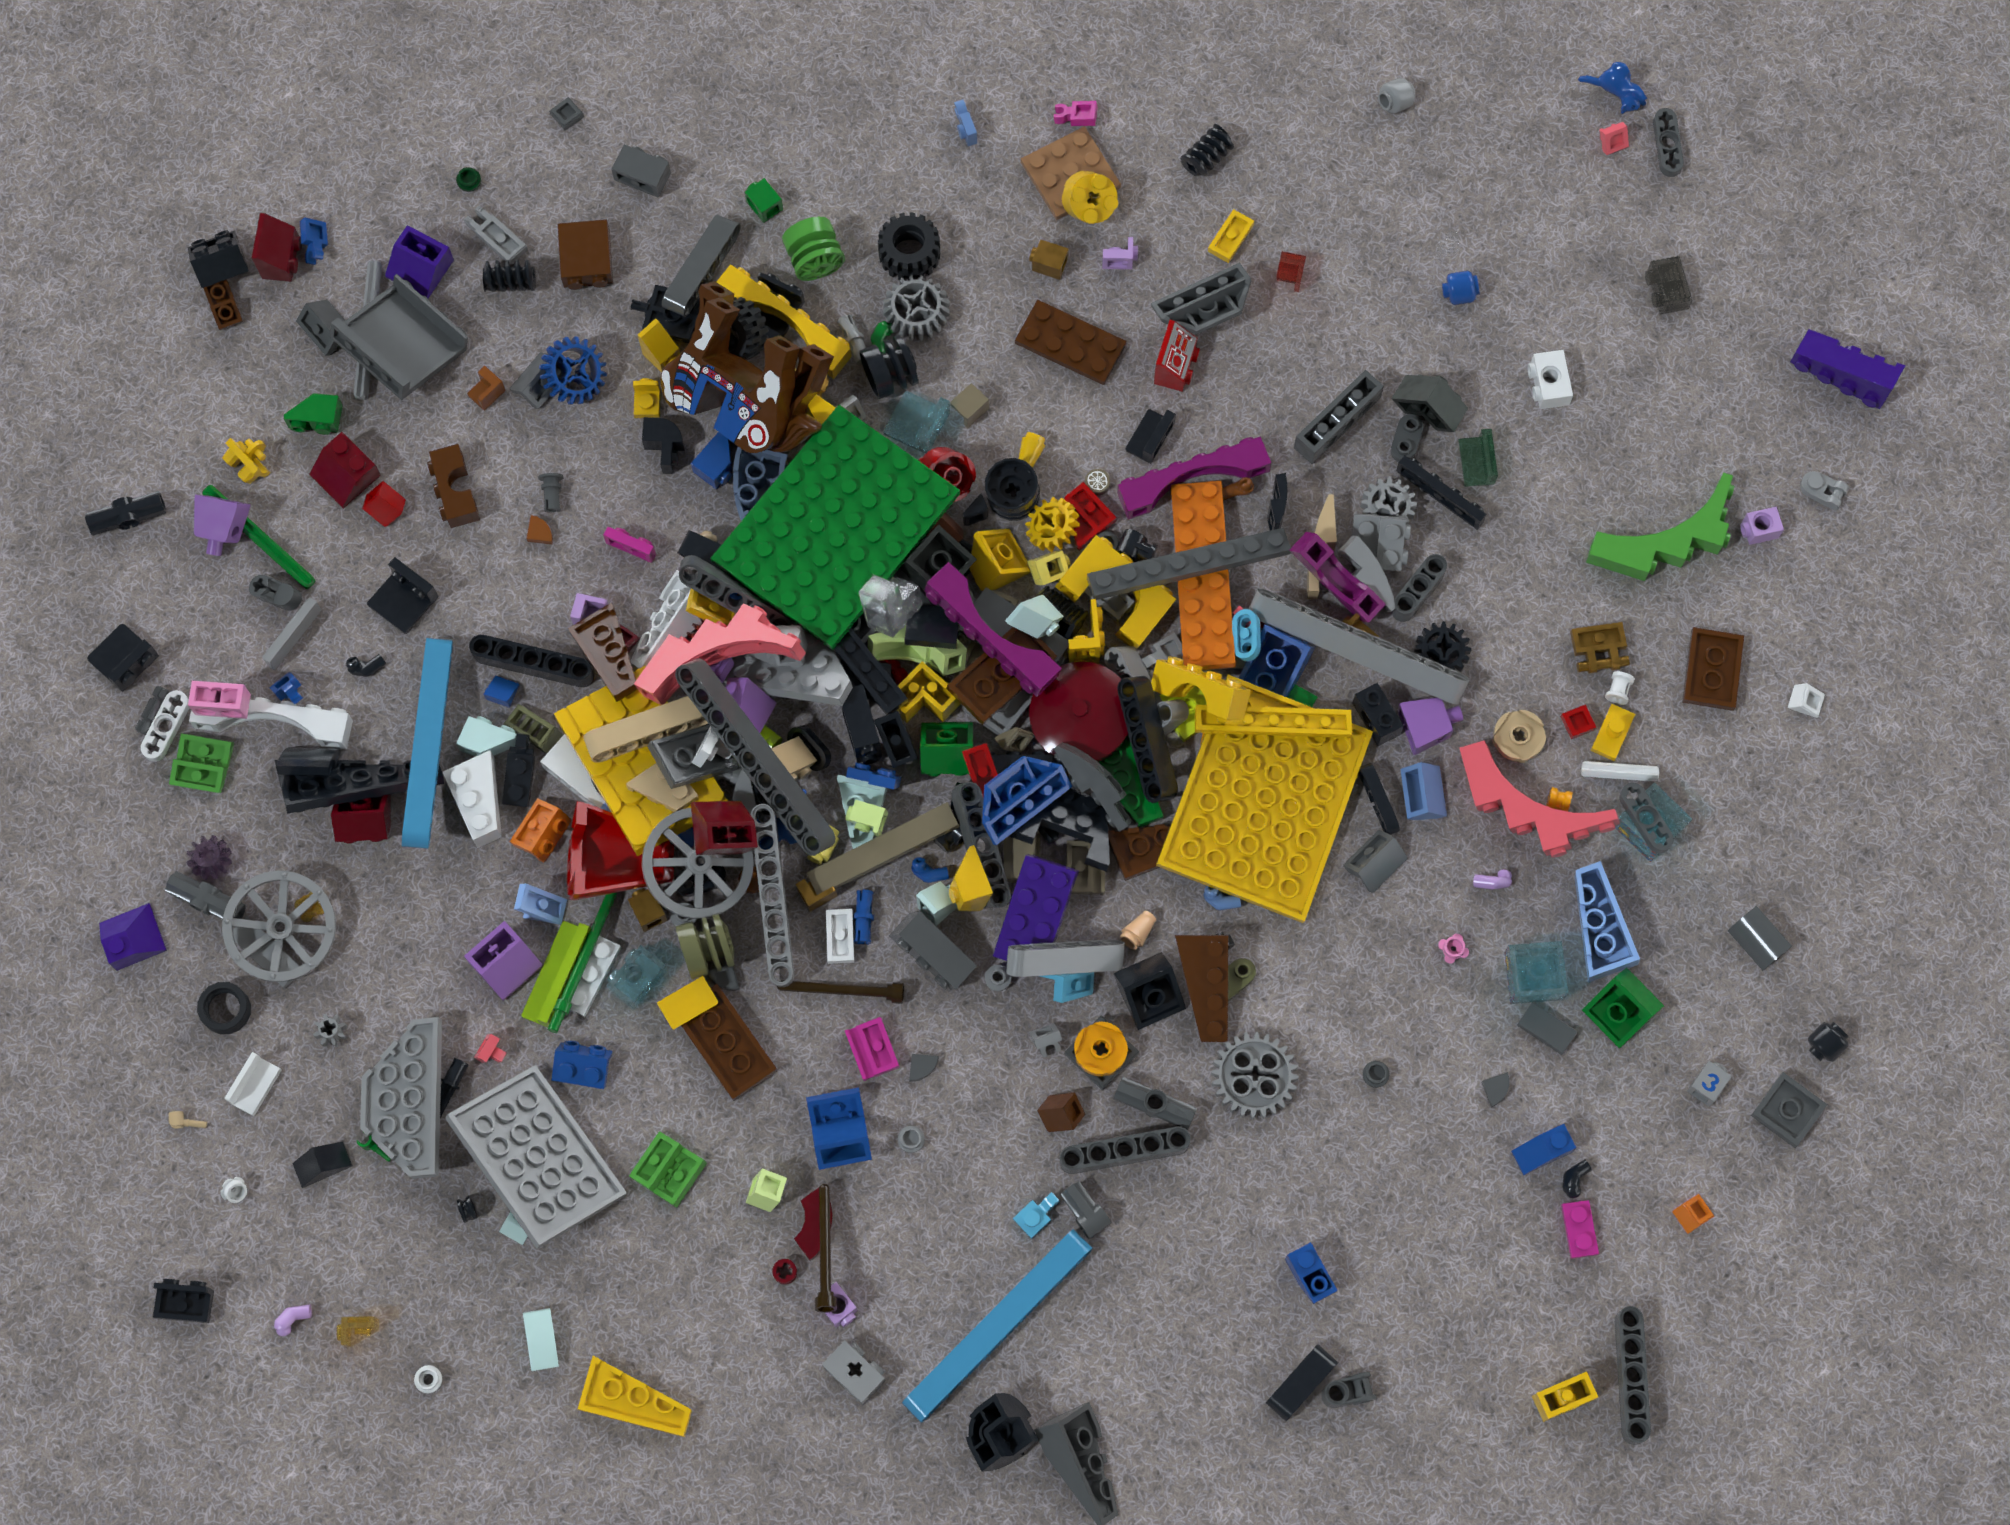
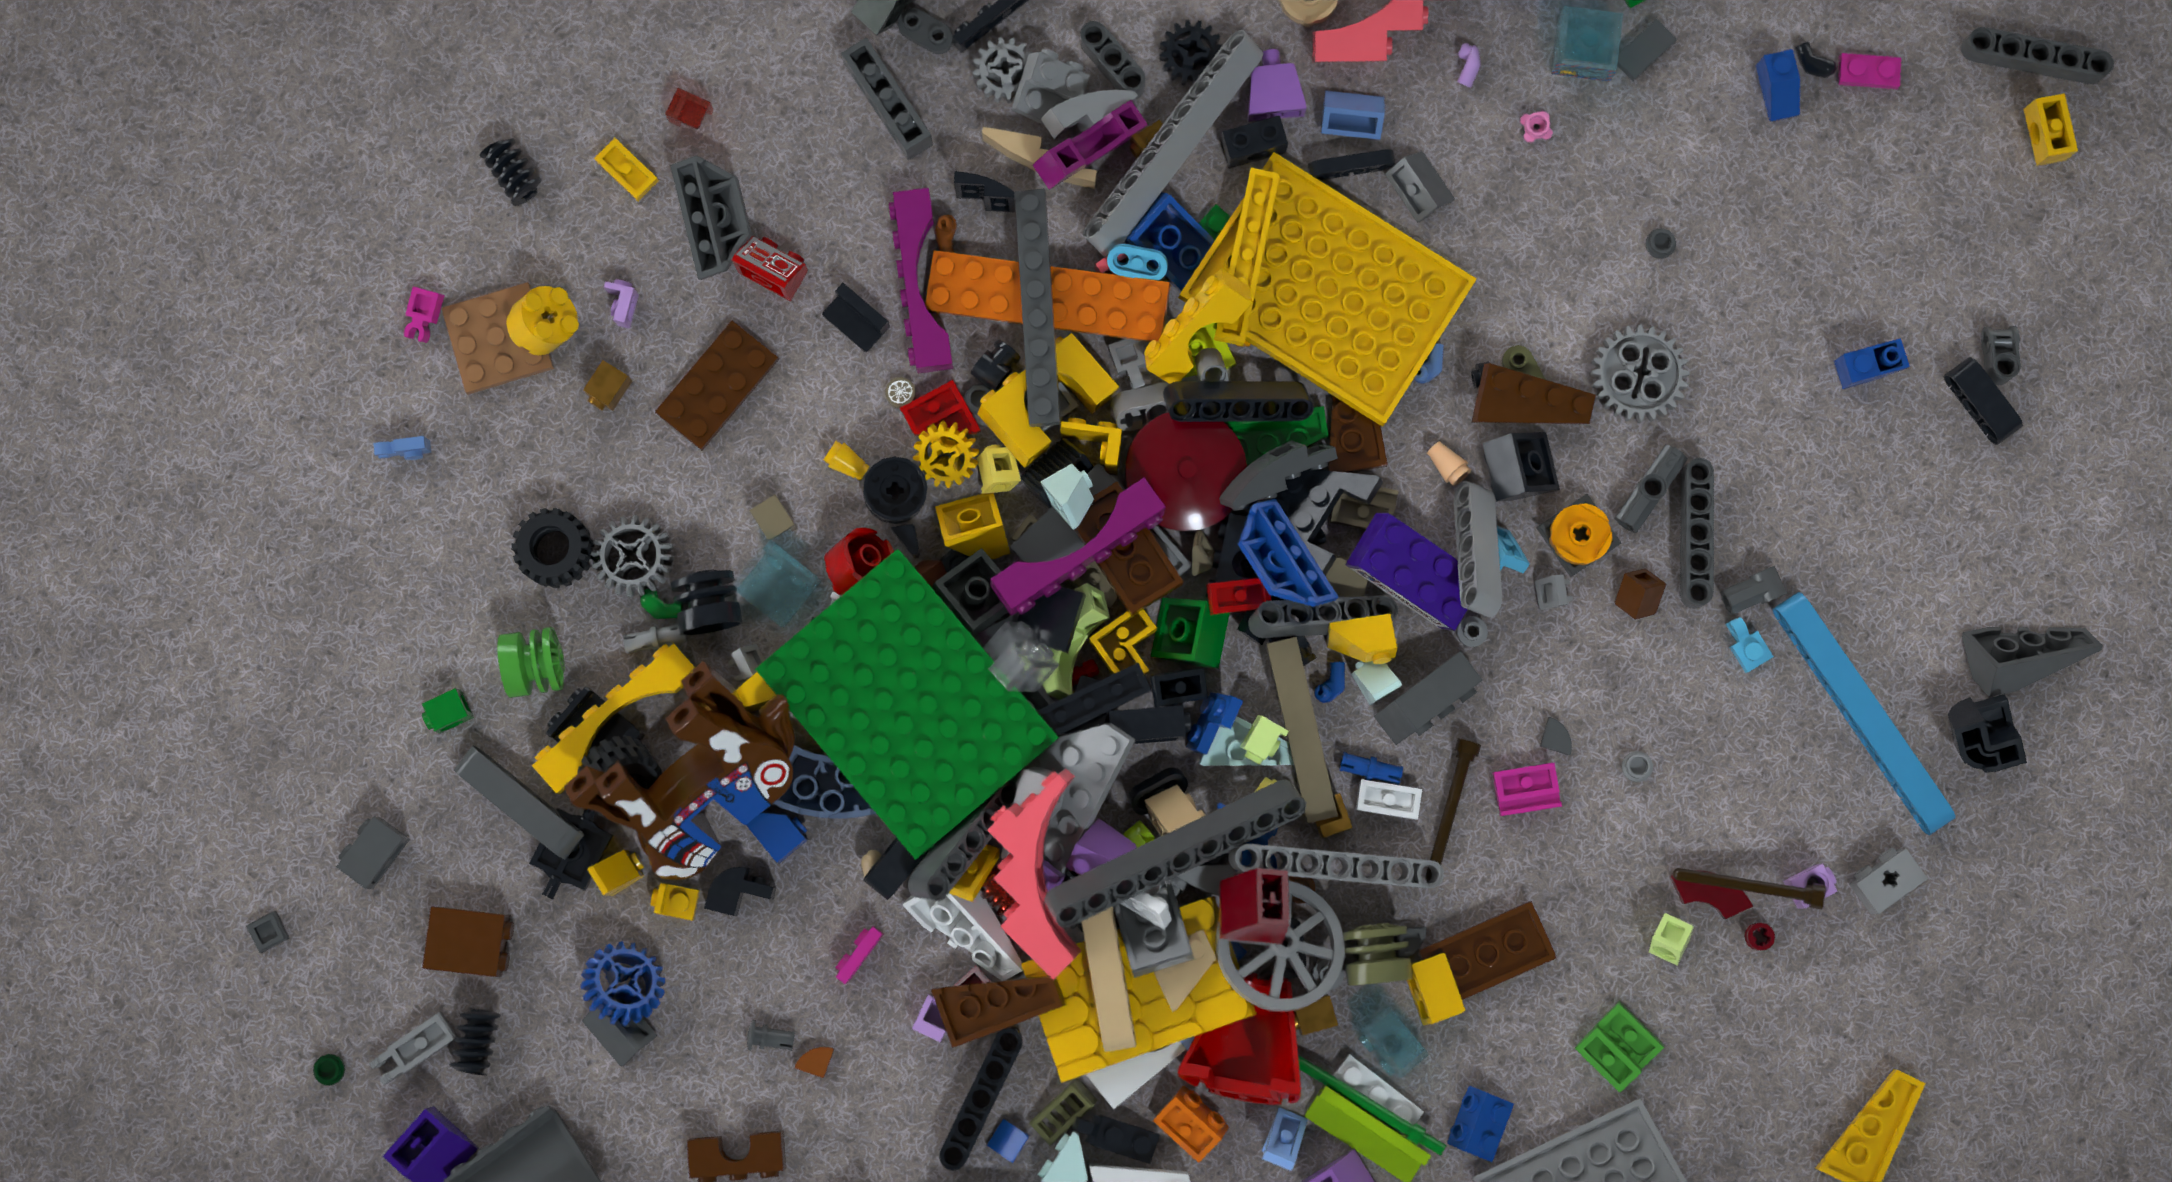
camera: 80 degrees left, 10 degrees up
(487, 389) = (617, 1095): dark orange panel -> none
(839, 1128) = (1615, 844): blue piece -> none
(1496, 1088) = (1700, 119): dark grey tile -> none

